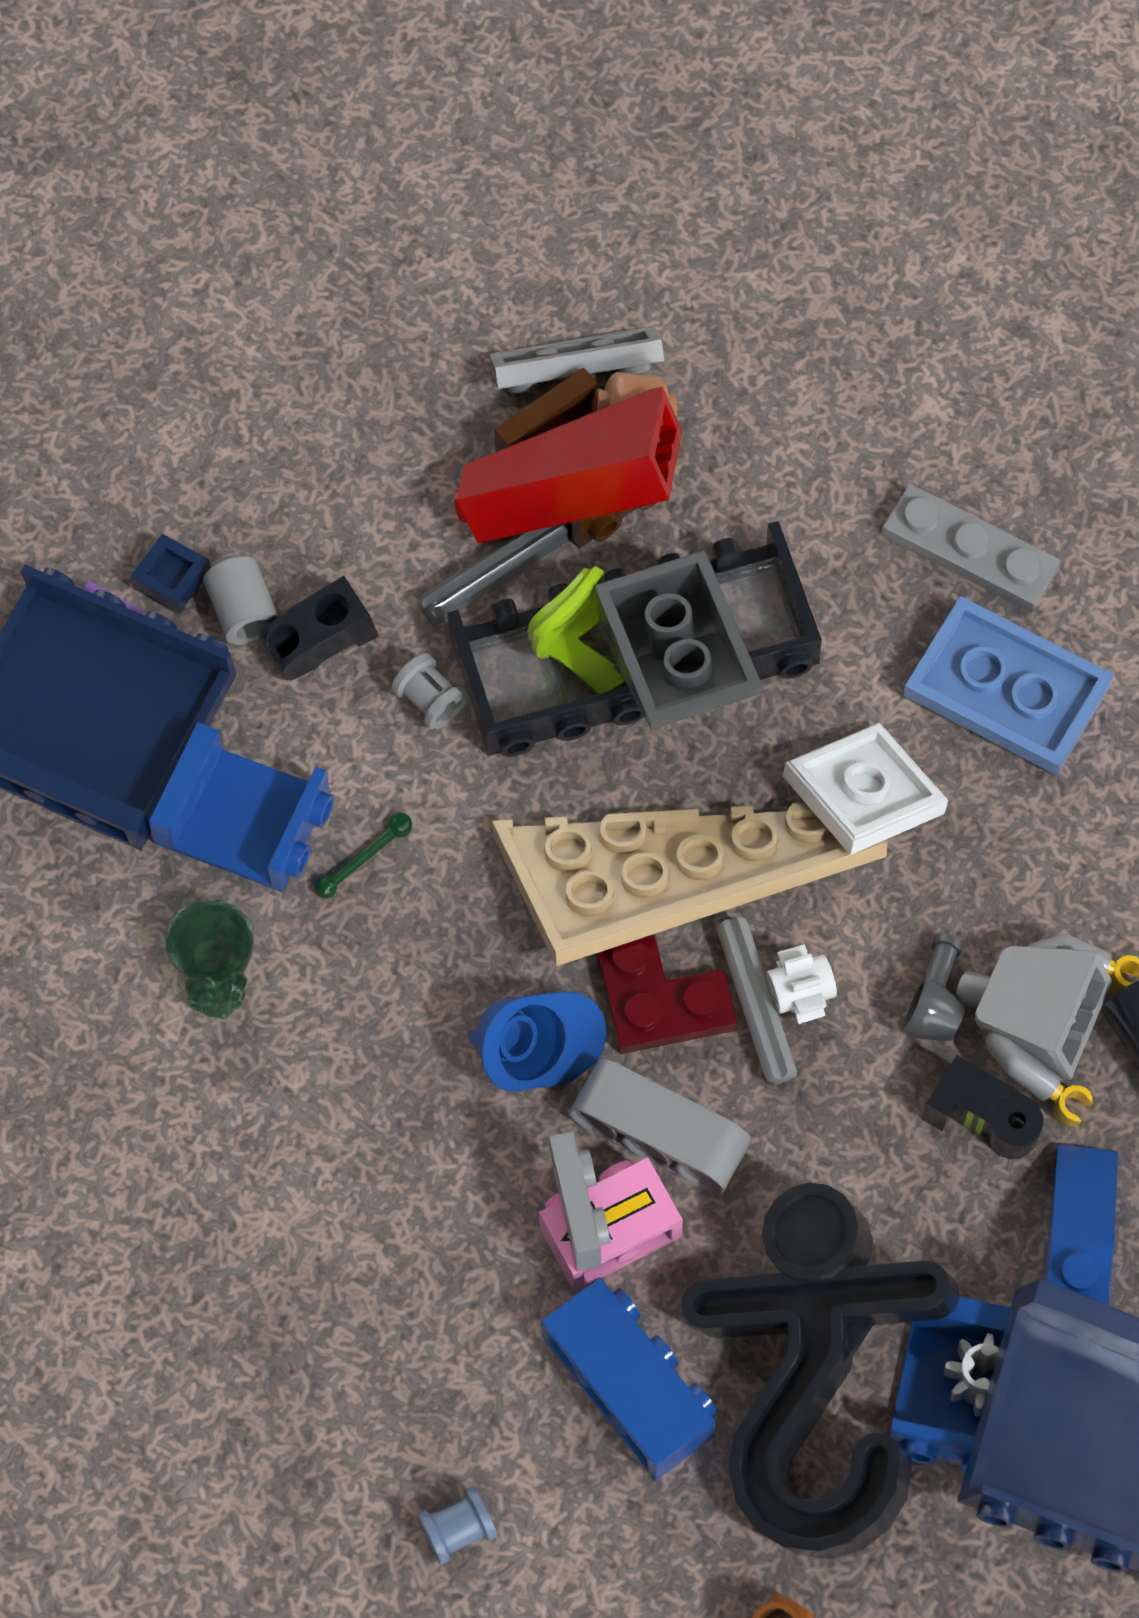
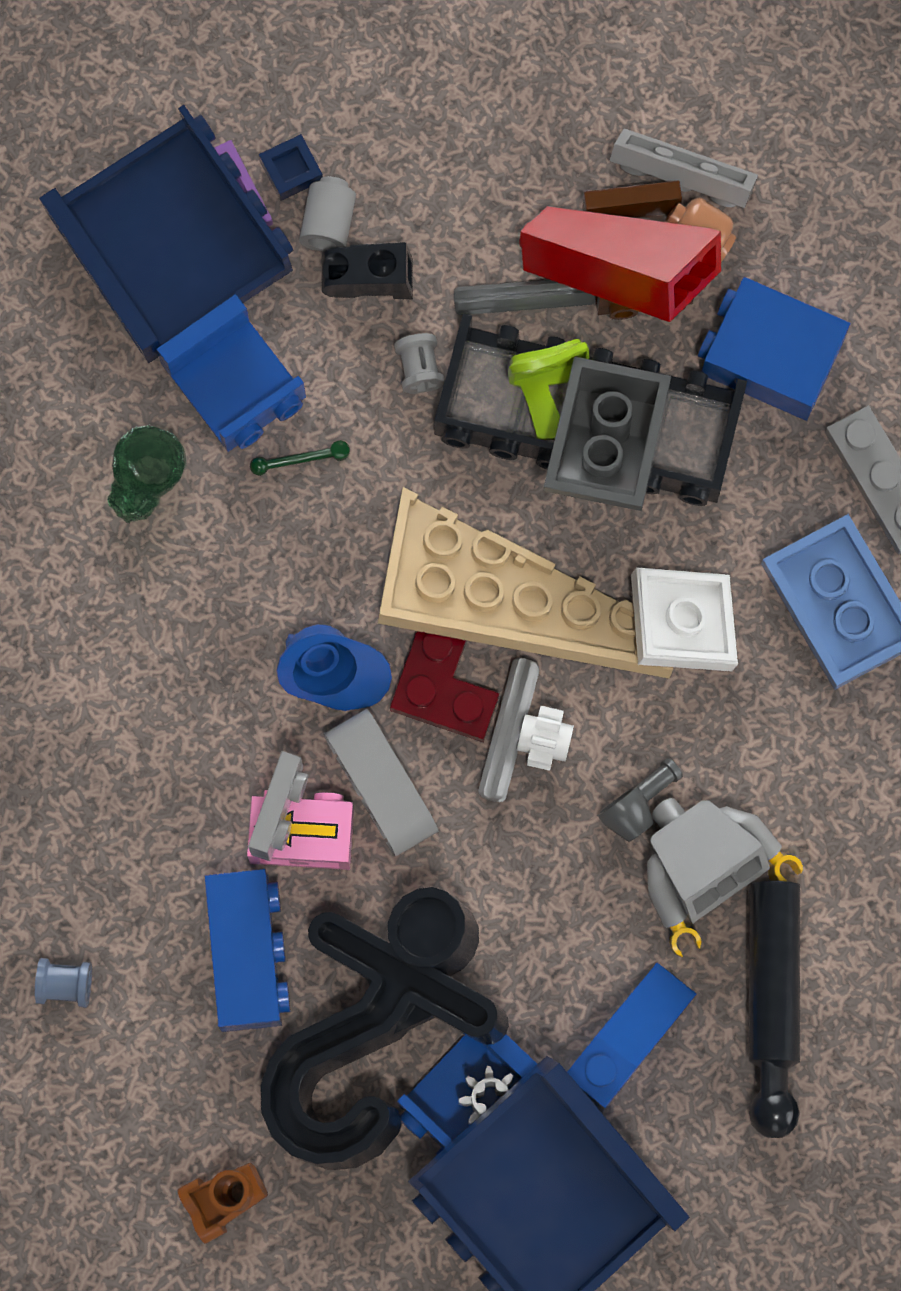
camera: 30 degrees right, 10 degrees up
(781, 472) = (774, 346): none -> blue brick
(986, 1107) = (629, 921): black leg -> none

